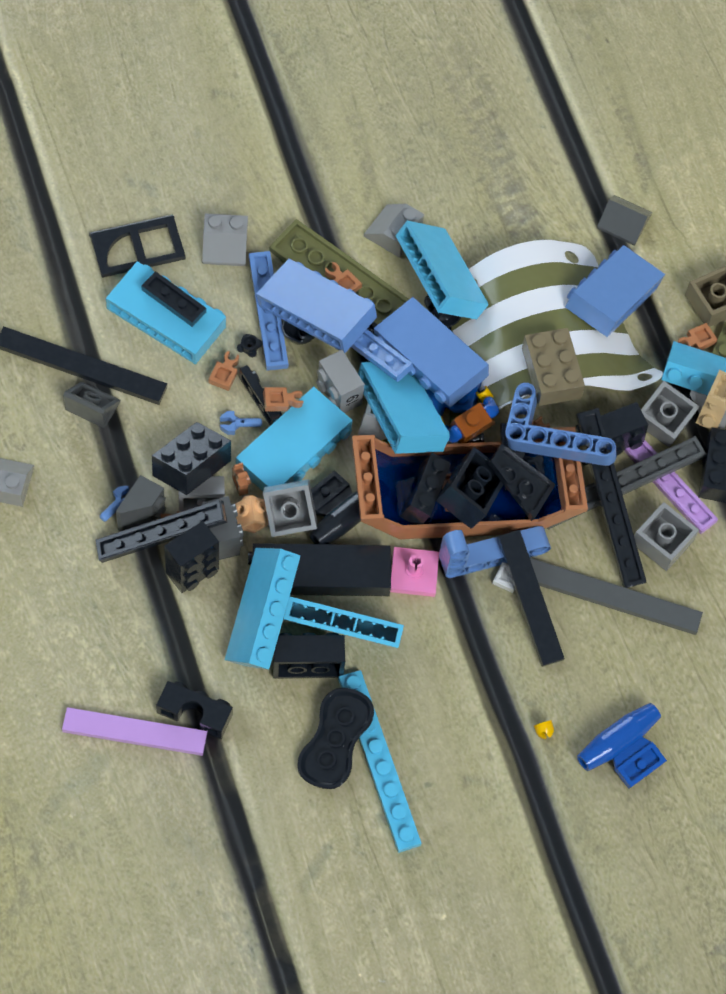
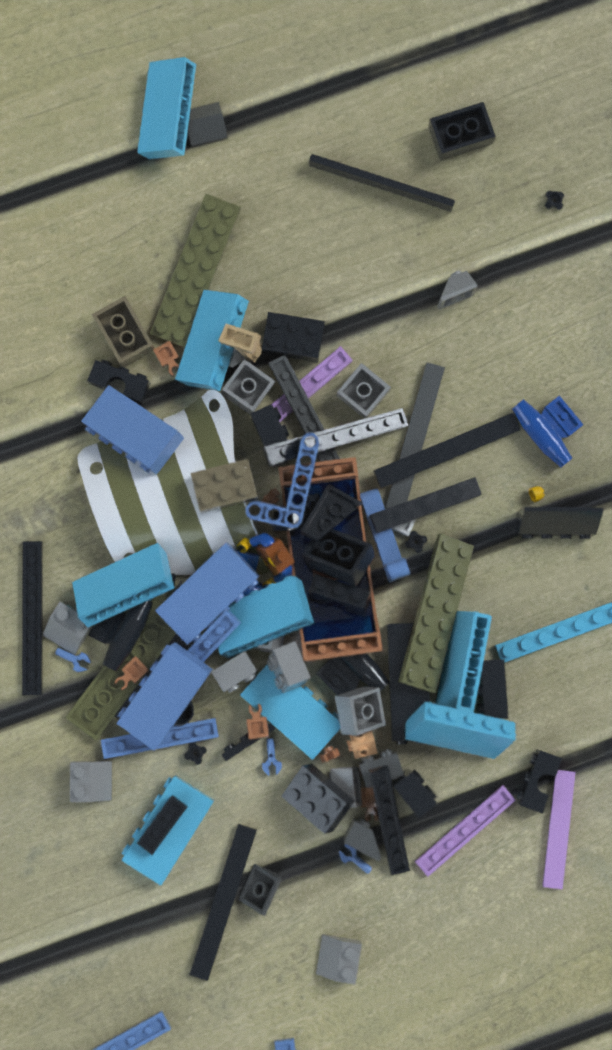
camera: 85 degrees left, 20 degrees up
(105, 239) = (91, 890): black window -> none
(141, 625) = (465, 830): none -> lavender tile
(224, 374) = (226, 774): nougat plate -> none
(337, 428) = (288, 667): none -> light grey brick
(342, 720) = (572, 669): black plate -> none
(362, 241) = (74, 659): none -> medium blue bar
(388, 272) = (121, 633): none -> black plate
(400, 194) = (32, 618): none -> black tile
(401, 599) = (436, 613): none -> olive plate
(414, 571) = (401, 601): bright pink tile -> none
(490, 585) = (411, 544): none -> black plate
(510, 743) = (558, 522): none -> black slope
(596, 628) = (446, 450): none -> black tile
(624, 220) = (46, 419): dark grey slope -> none
(663, 302) = (104, 374): none -> black arch

